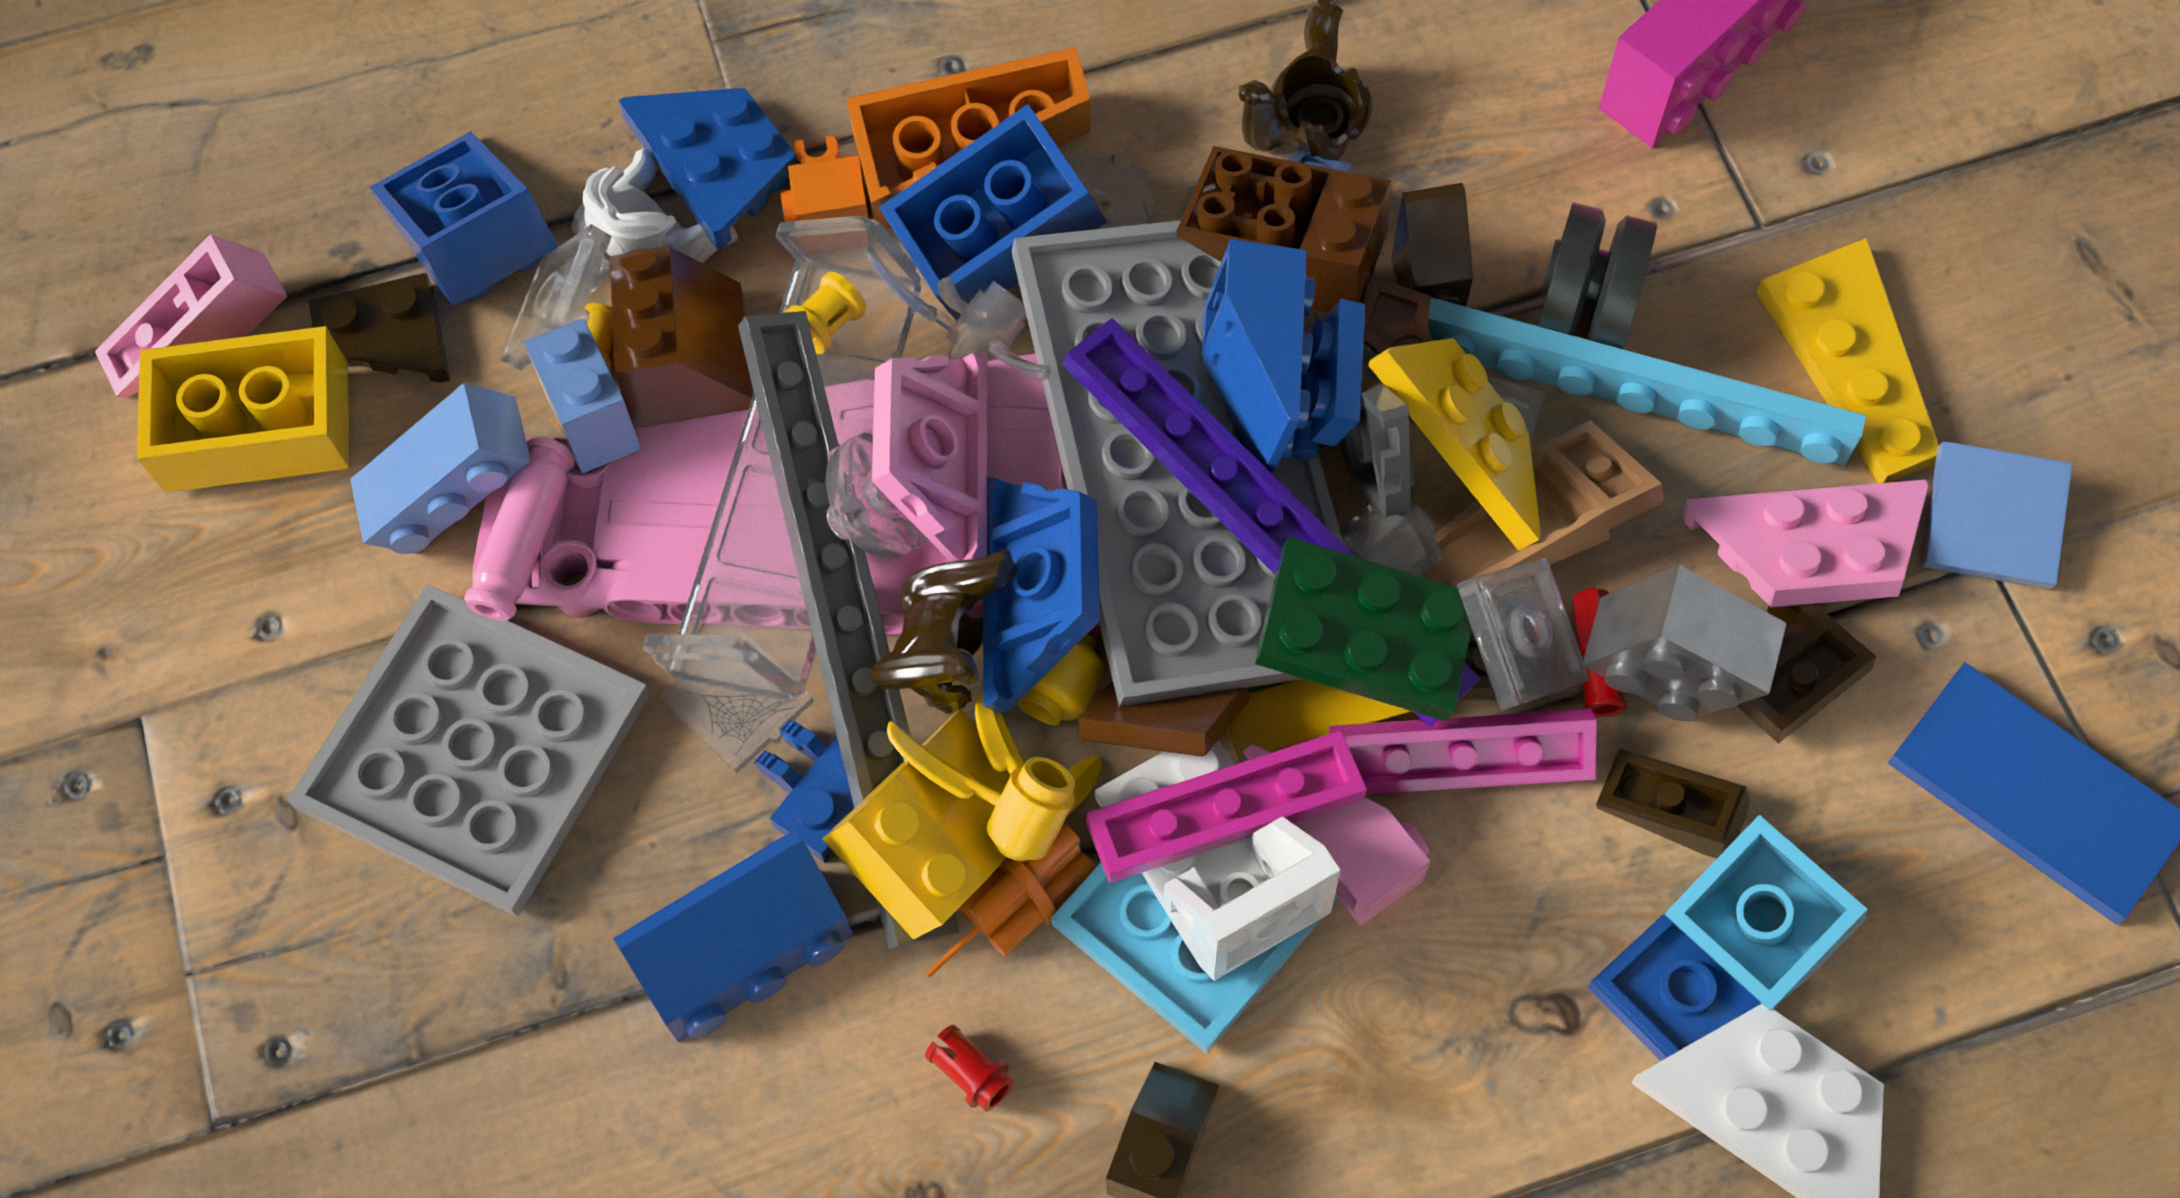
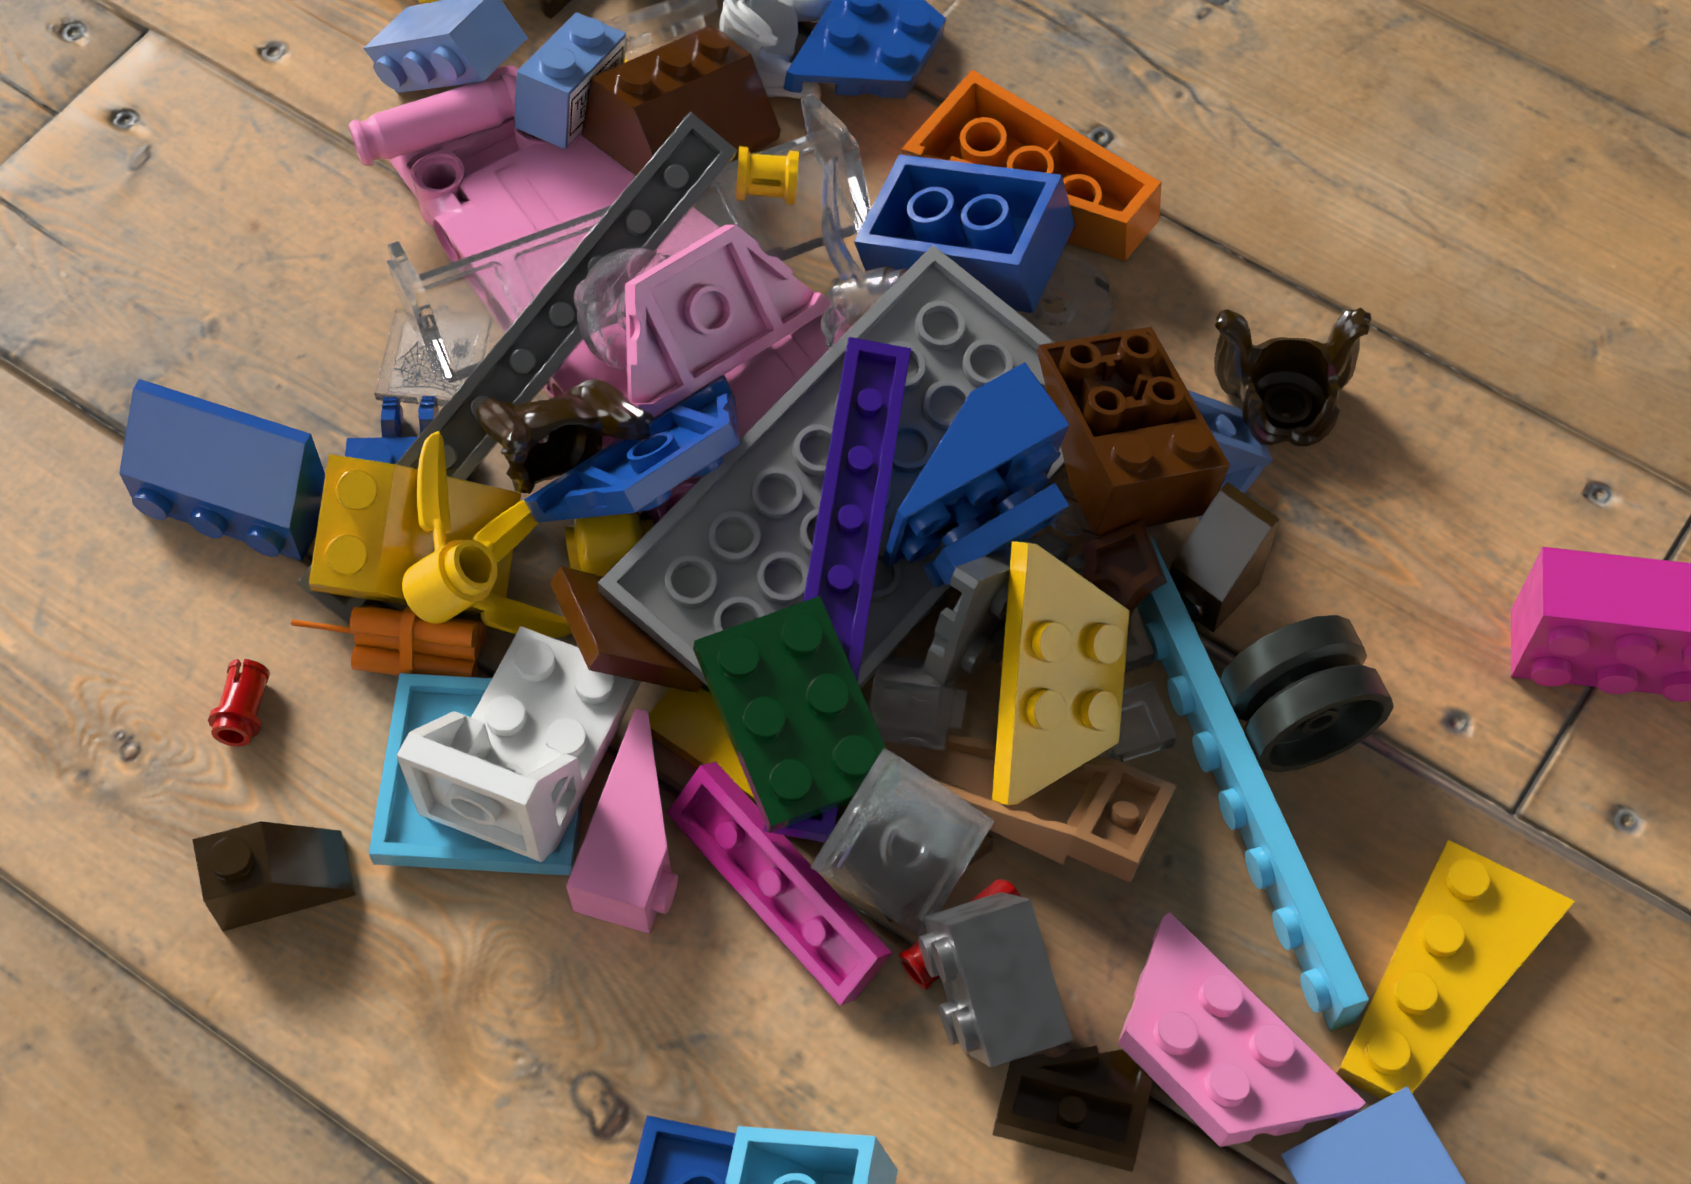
camera: 50 degrees right, 5 degrees down
(471, 749) = (260, 225): light grey plate -> none
(824, 185) = (890, 119): orange brick -> none
(1224, 806) = (564, 717): dark pink plate -> none
(1675, 802) = (871, 1081): dark brown slope -> none

